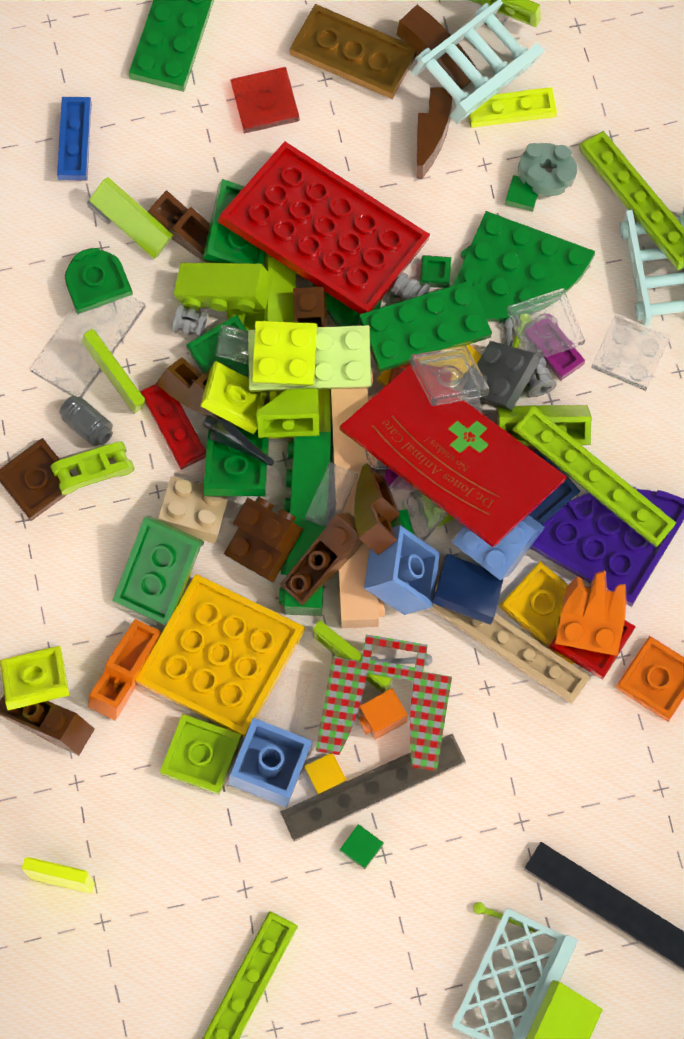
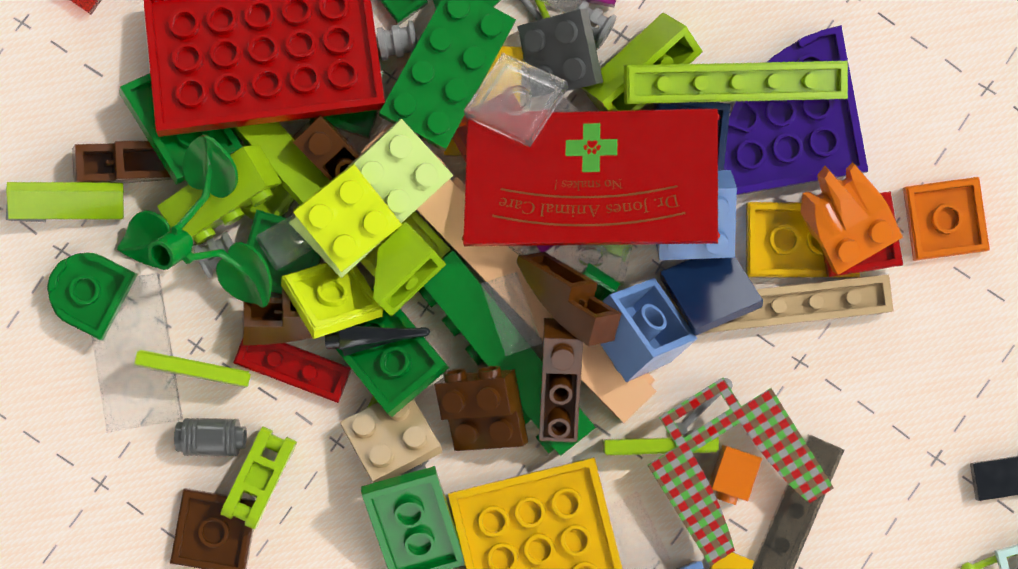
camera: 45 degrees left, 15 degrees up
(163, 283) = (153, 242): none -> green plant

